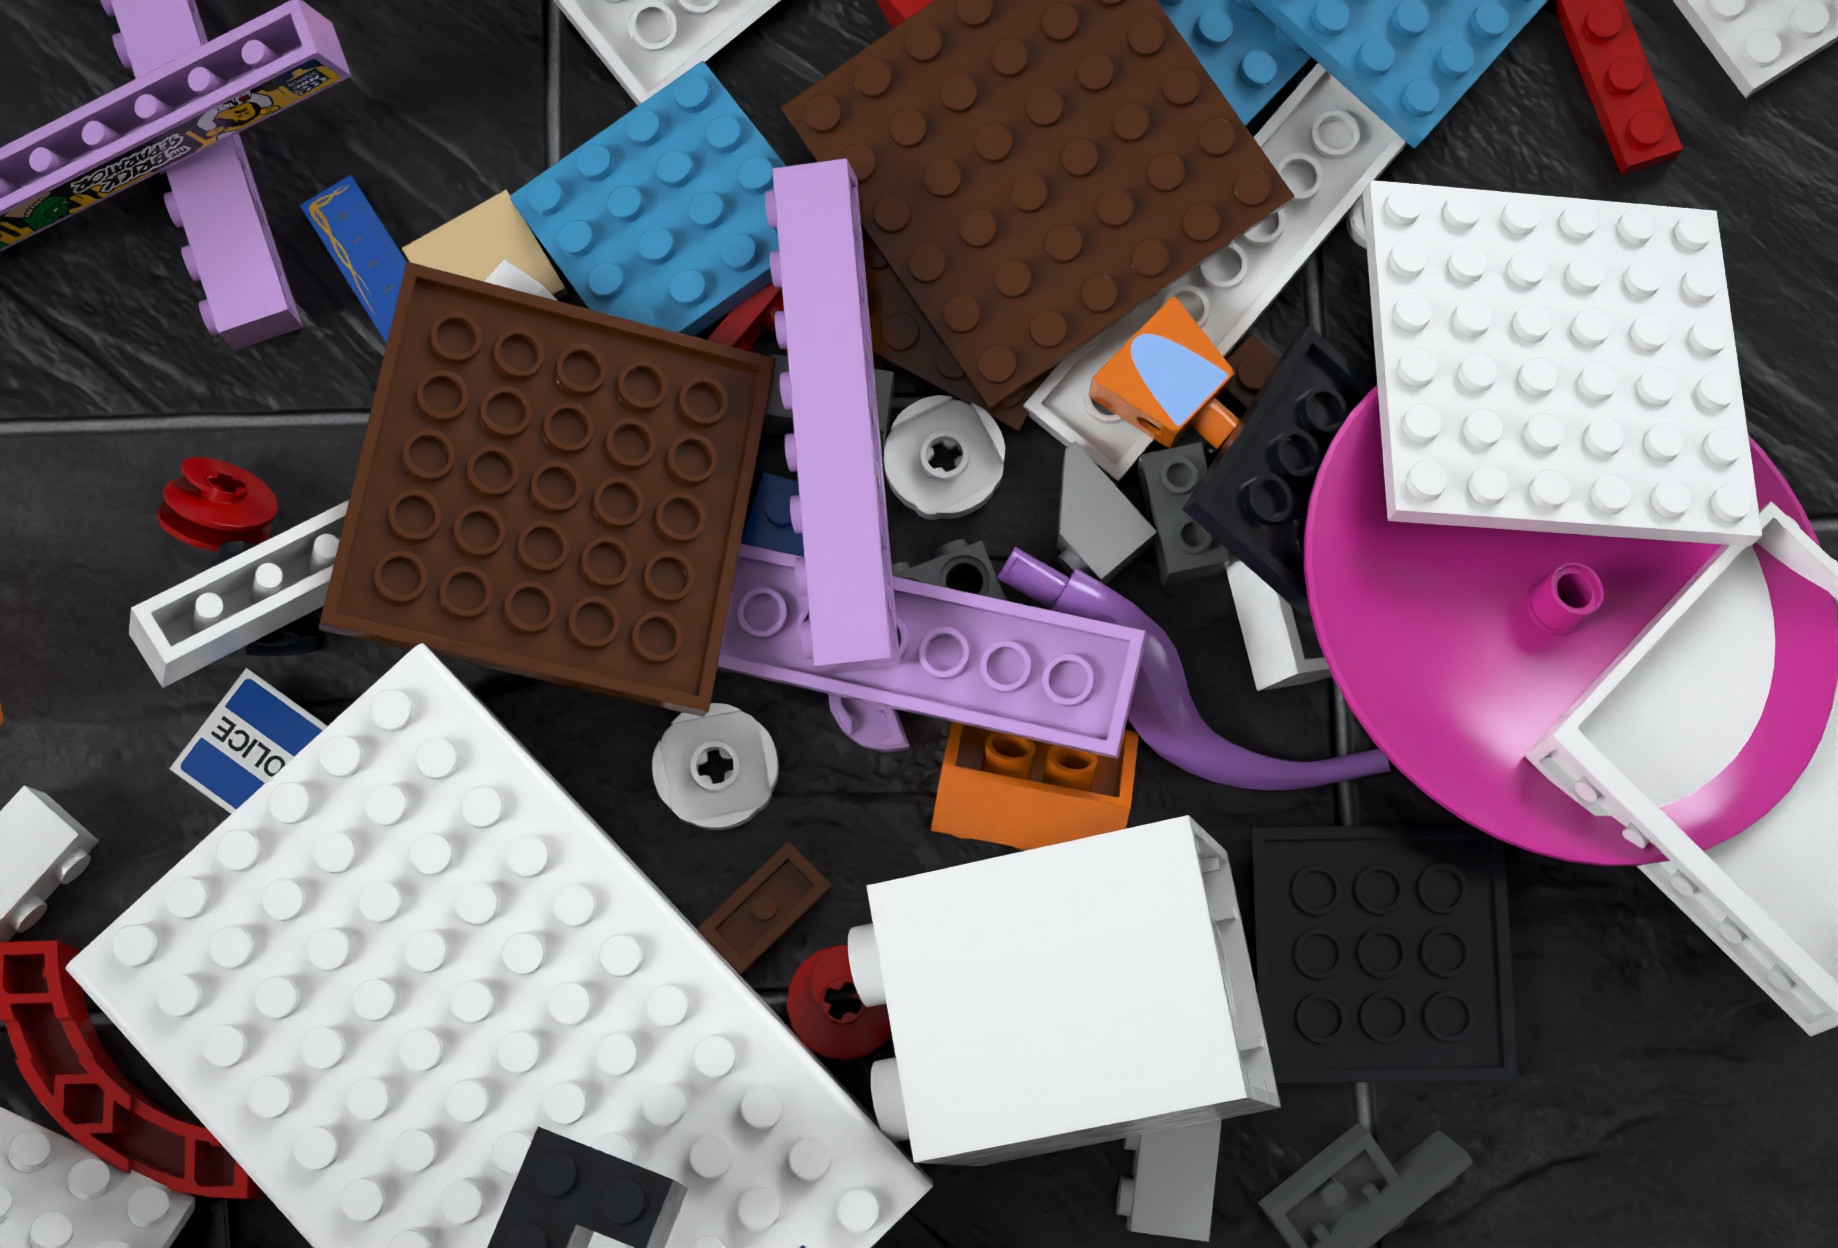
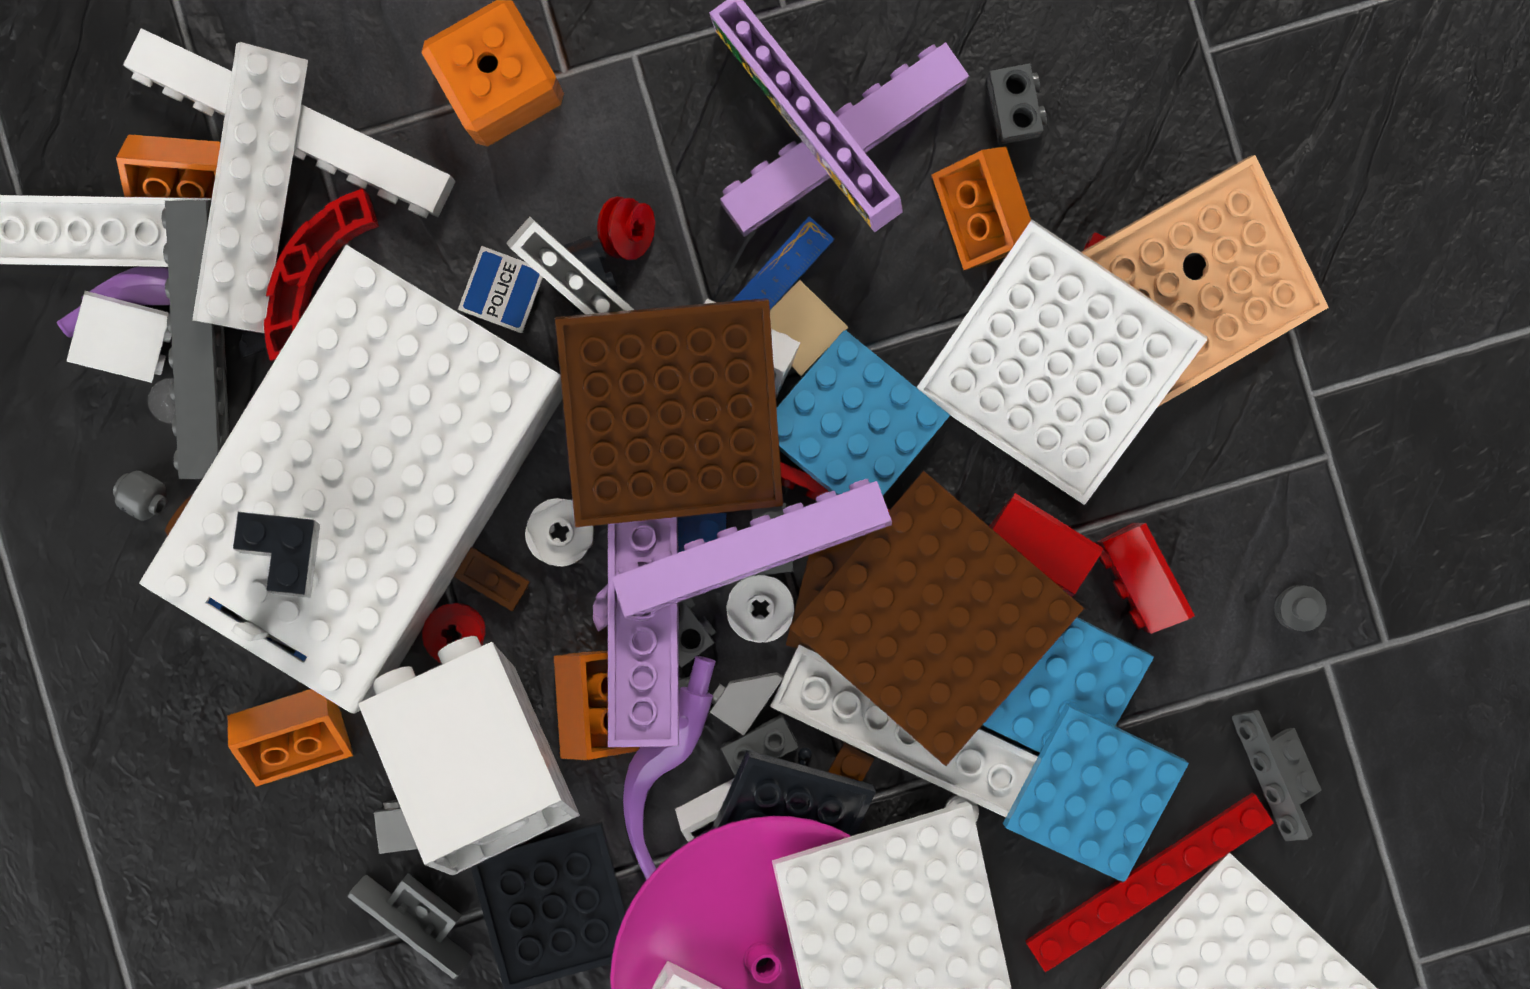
camera: 80 degrees right, 10 degrees up
(1168, 380) = (828, 722): orange torso -> none

